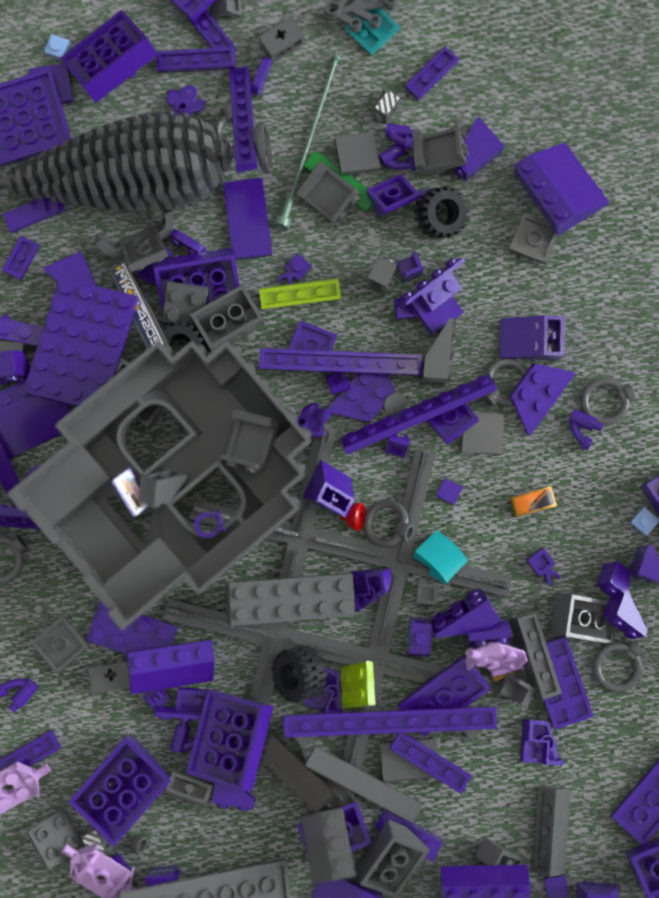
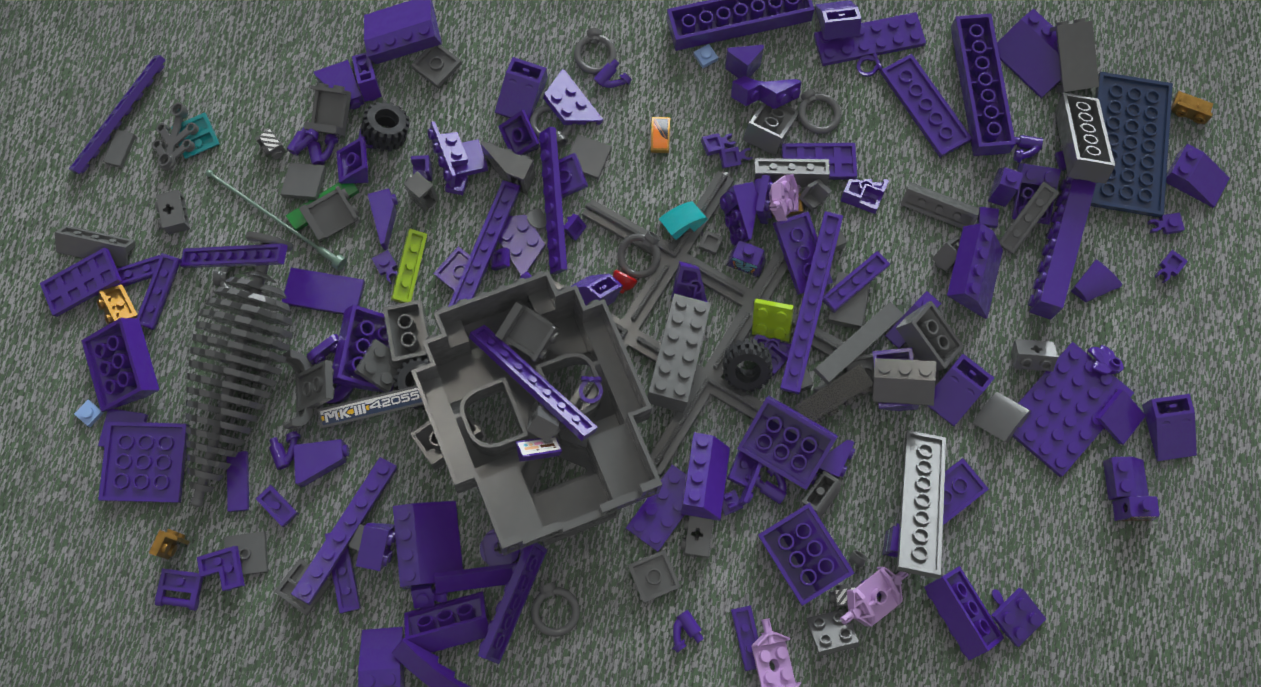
camera: 70 degrees left, 10 degrees down
(73, 238) = (278, 452): none -> dark purple plant
(80, 342) = (382, 467): dark purple plate -> none
(169, 27) = (115, 304): none -> pearl gold bracket
(185, 99) = (190, 313): dark purple plate -> none
(196, 464) = (533, 382): none -> dark purple plate
(261, 76) = (199, 240): dark purple tile -> none
(347, 247) = (384, 214): none -> dark purple slope
(431, 73) = (258, 101): dark purple tile -> none
(449, 491) = (628, 198): dark purple tile -> none
(479, 353) = (519, 134): none -> dark purple slope
(493, 172) = (366, 77): none -> dark purple slope
(533, 587) = (732, 157): none -> dark purple plate

